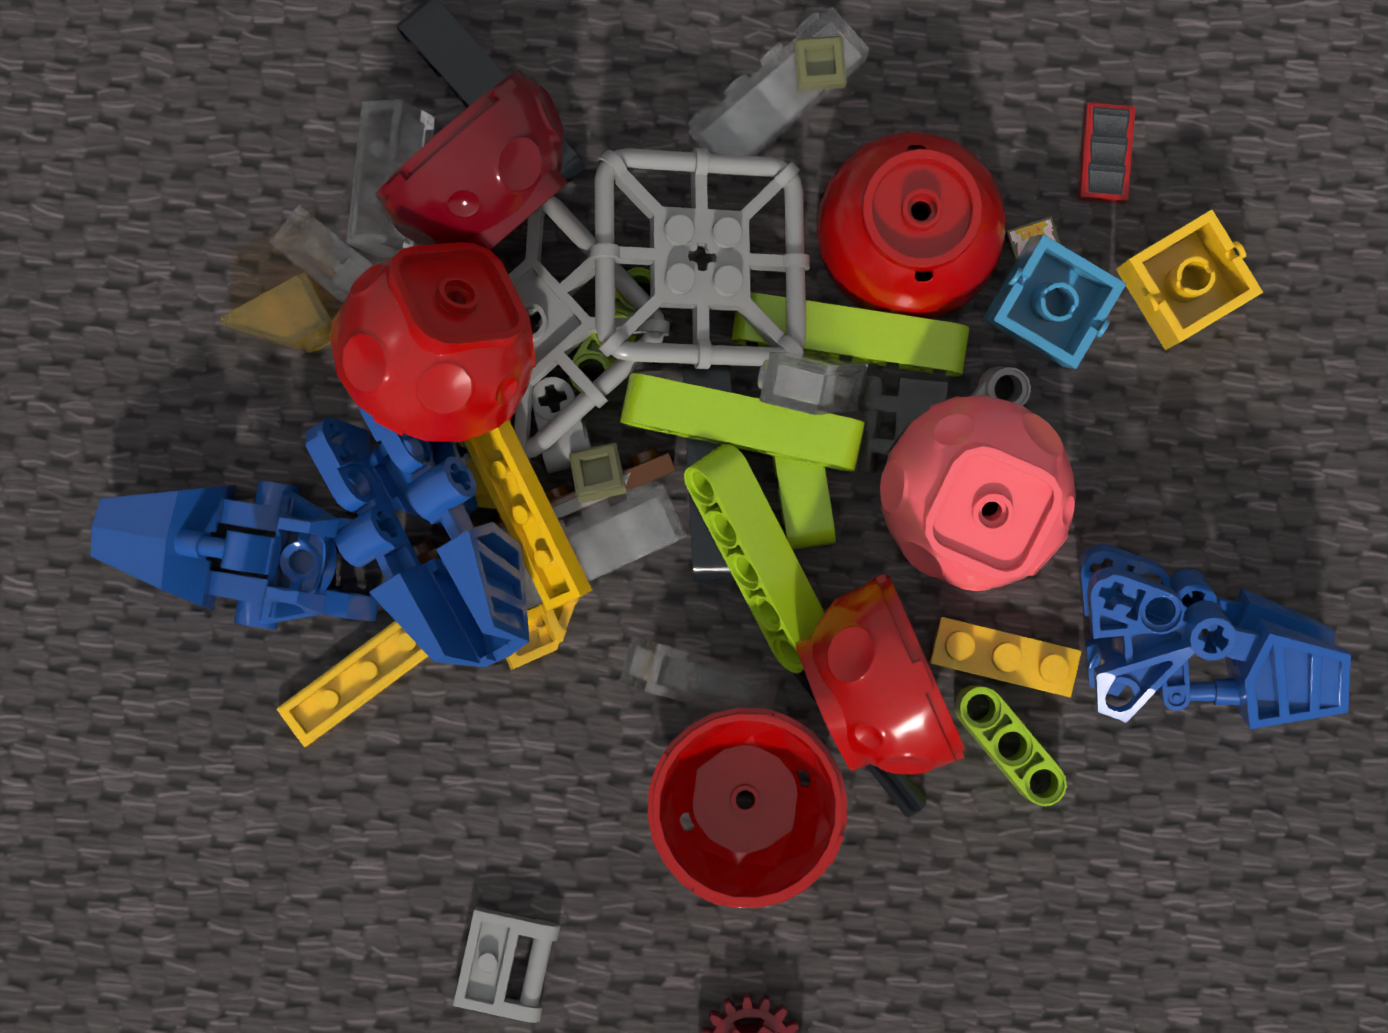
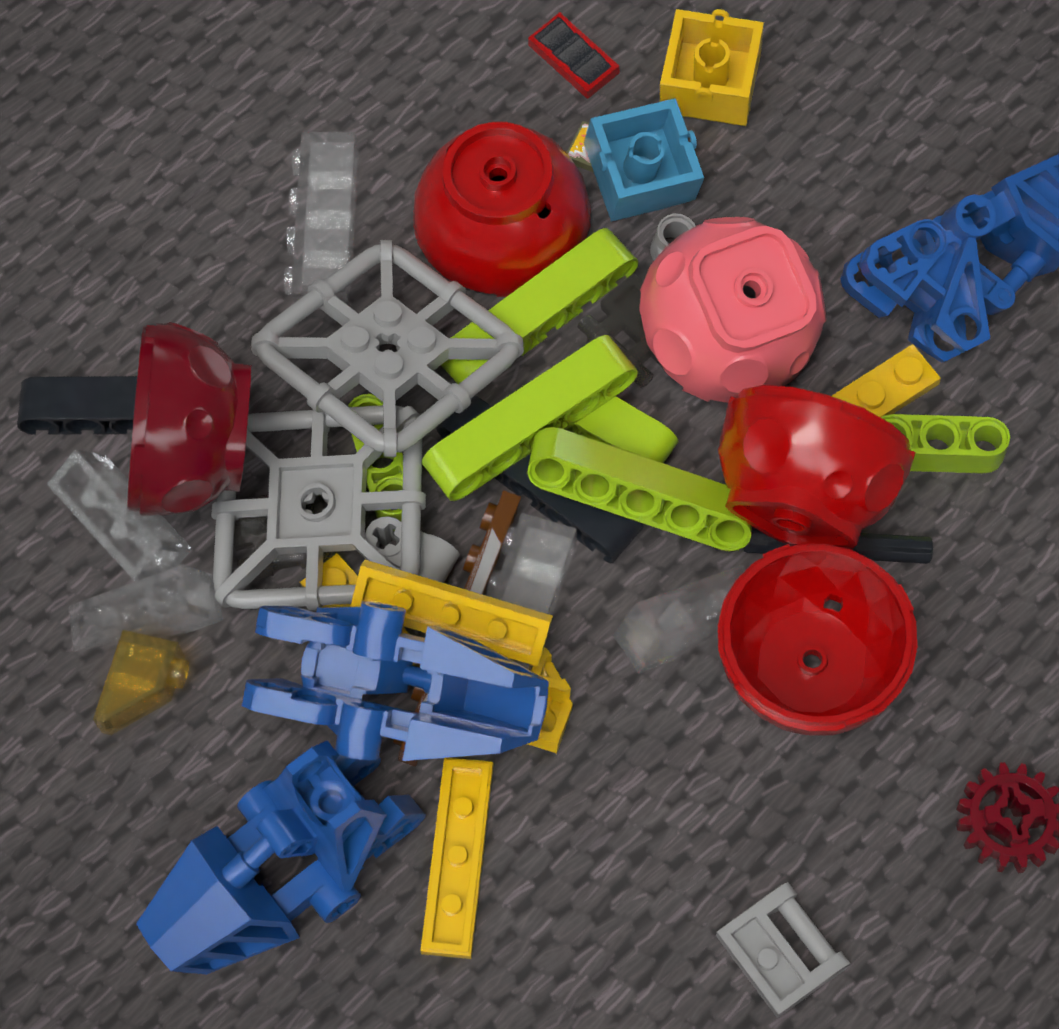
camera: 40 degrees left, 20 degrees down
(435, 342) = (270, 538): red rock -> none
(597, 473) = (470, 547): olive tile -> none
(811, 383) = (541, 341): clear slope -> none
(819, 63) = (332, 167): olive tile -> none

